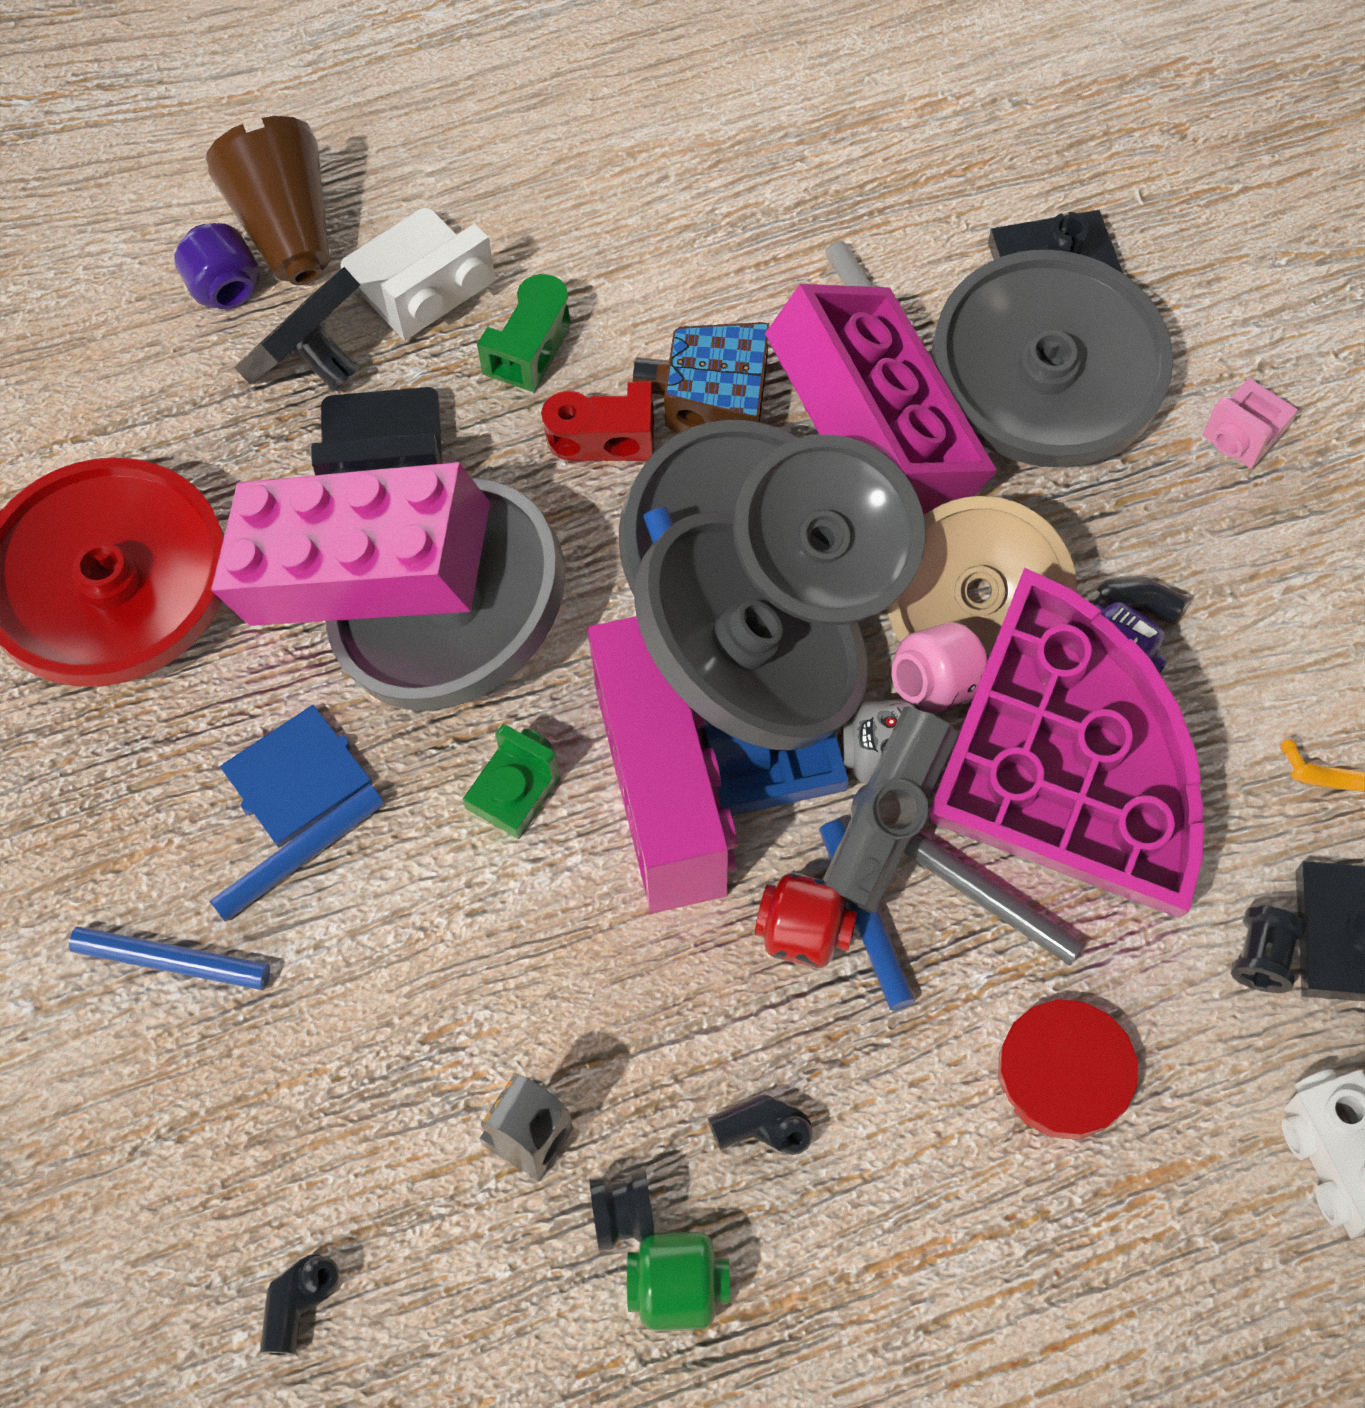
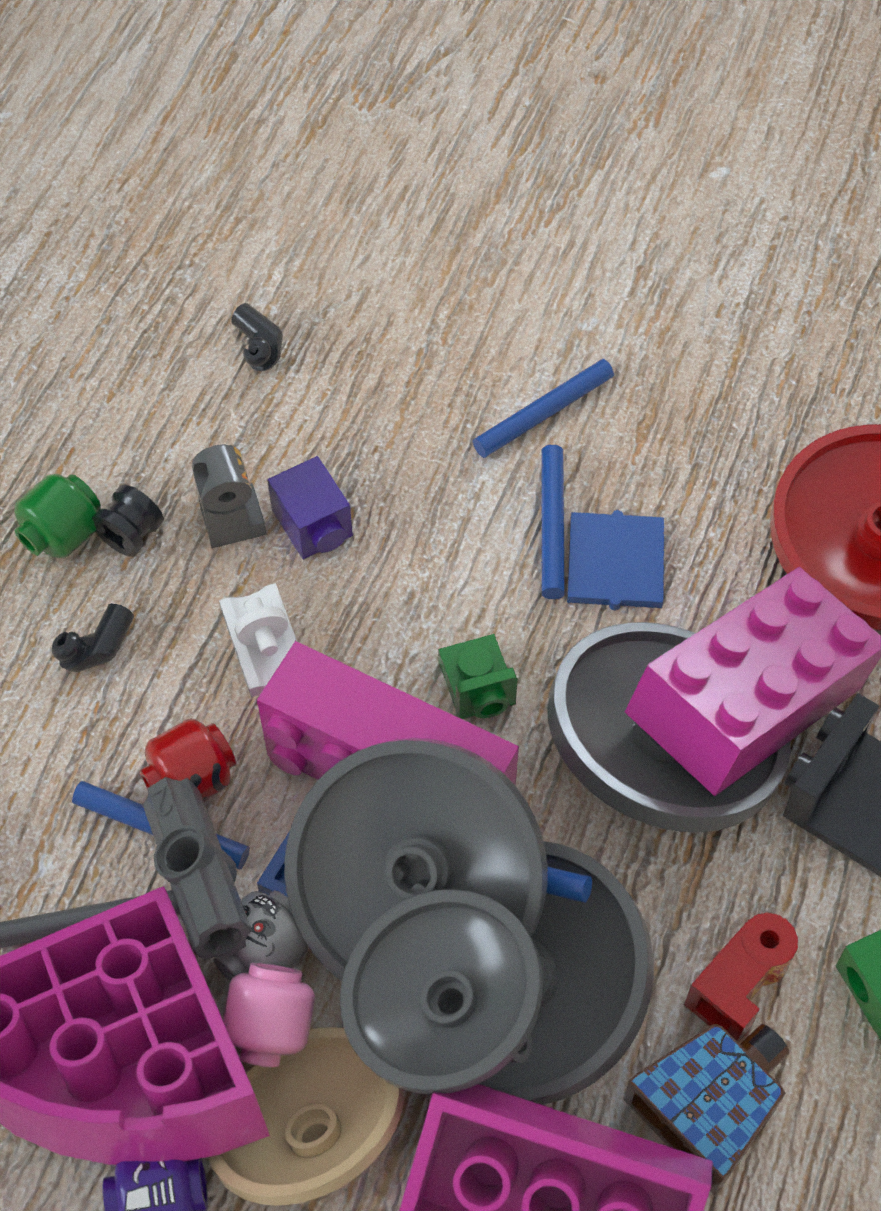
camera: 130 degrees right, 5 degrees down
(466, 1051) = (310, 508): none -> dark purple brick
(639, 963) = (259, 634): none -> white hips

